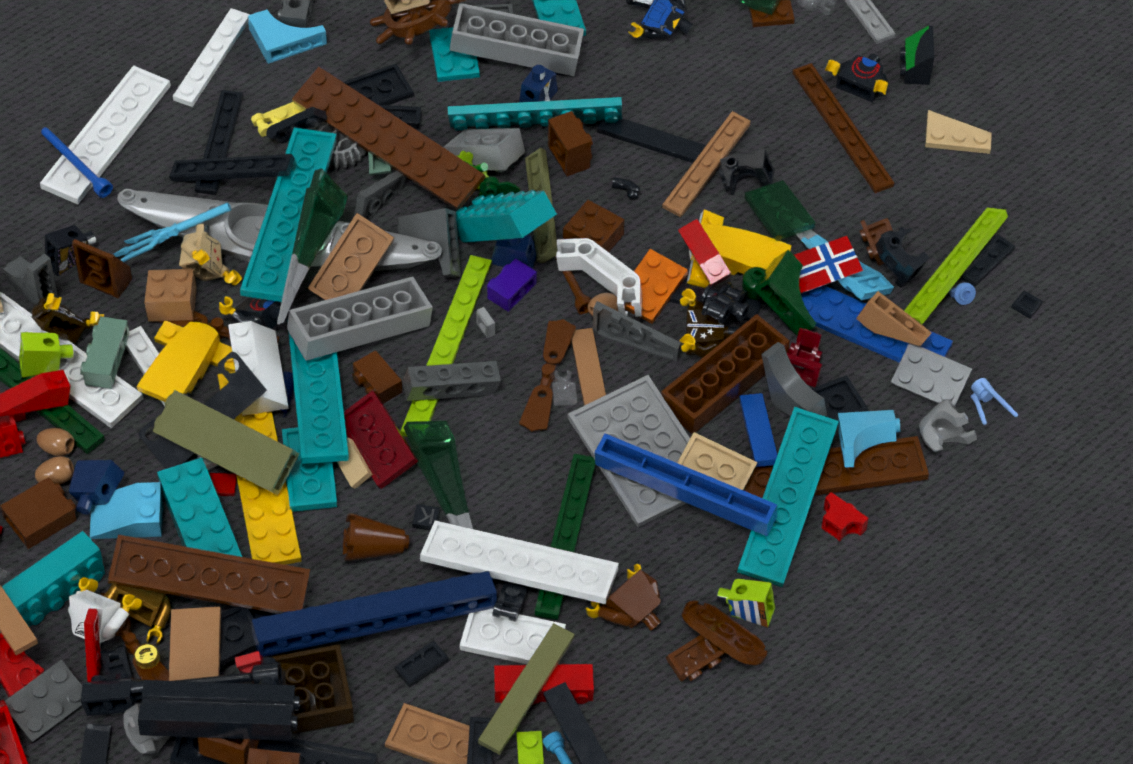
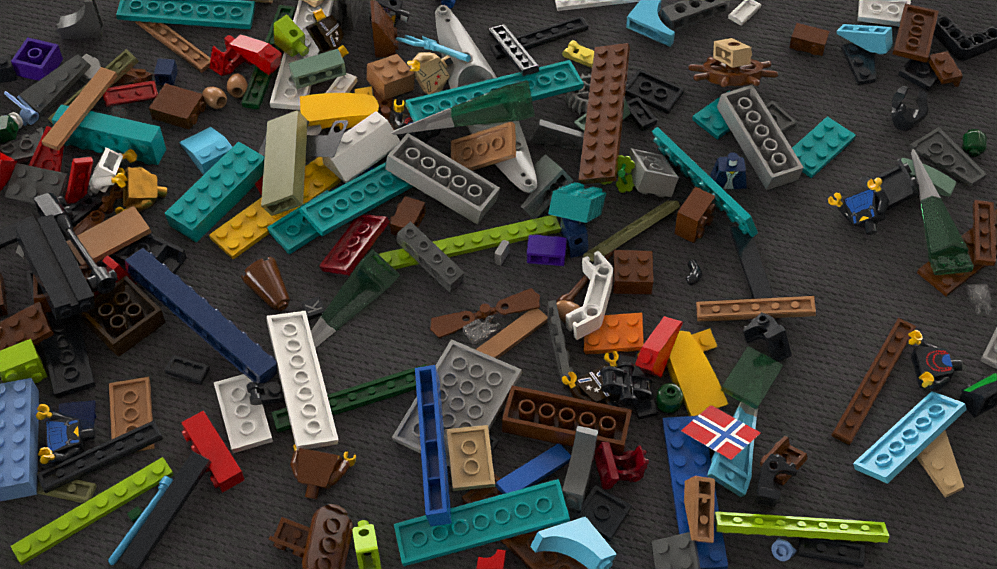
camera: 60 degrees right, 0 degrees up
(94, 483) = (213, 119): dark blue torso -> none
(146, 656) = (94, 214): tile -> none
(208, 575) = (168, 210): reddish brown plate -> none
(306, 119) = (579, 60): black plate -> none
(355, 469) = (327, 243): tan tile -> none
(492, 186) = (616, 196): dark green plate -> none
(526, 689) = (192, 439): olive tile -> none
(782, 293) = (667, 413): dark green arch -> none
(921, 137) = (909, 437): none -> medium azure plate

